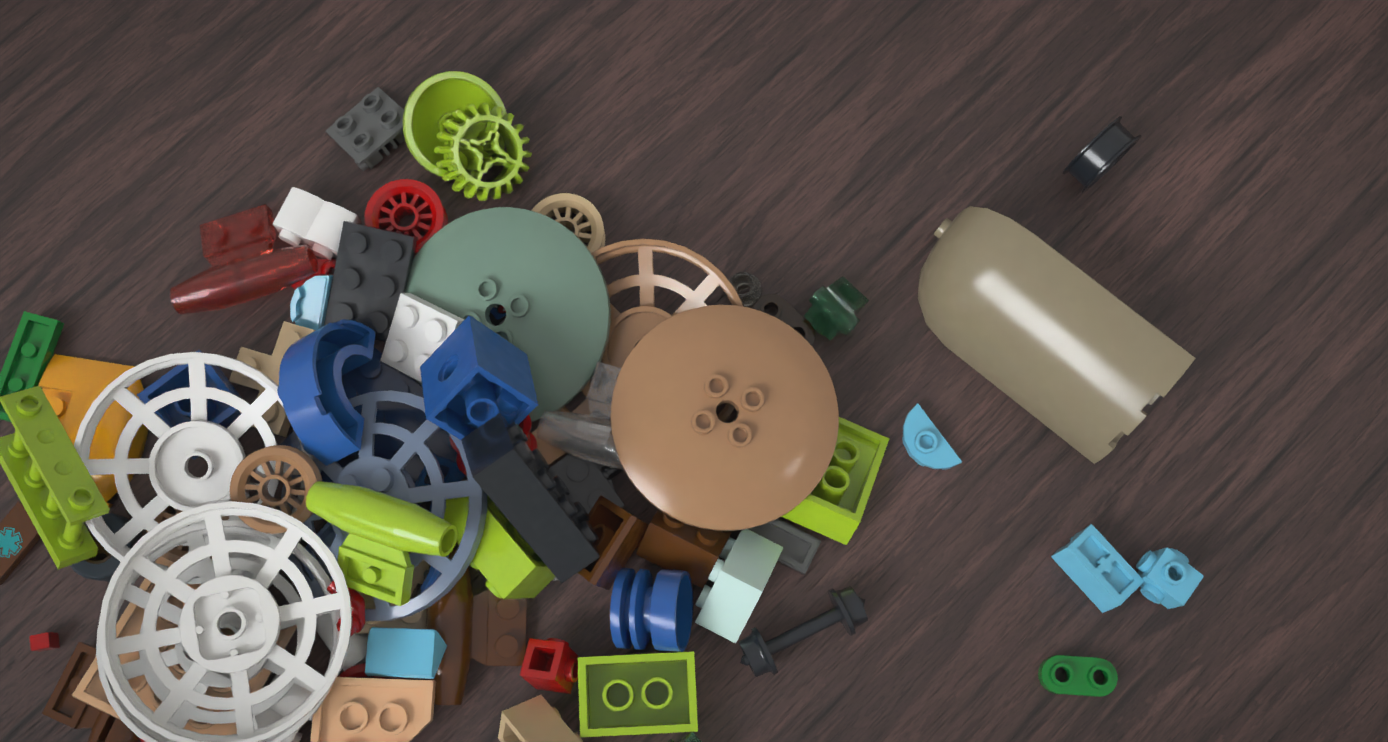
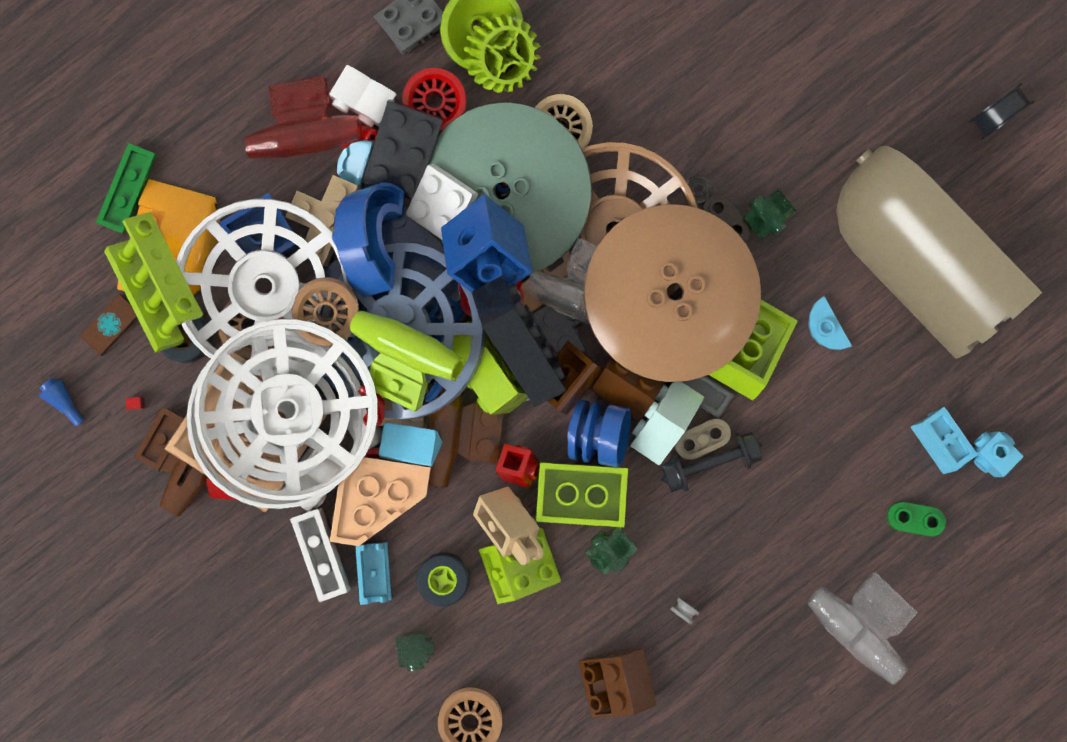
camera: 10 degrees right, 10 degrees up
(788, 604) = (702, 439): none -> dark tan plate

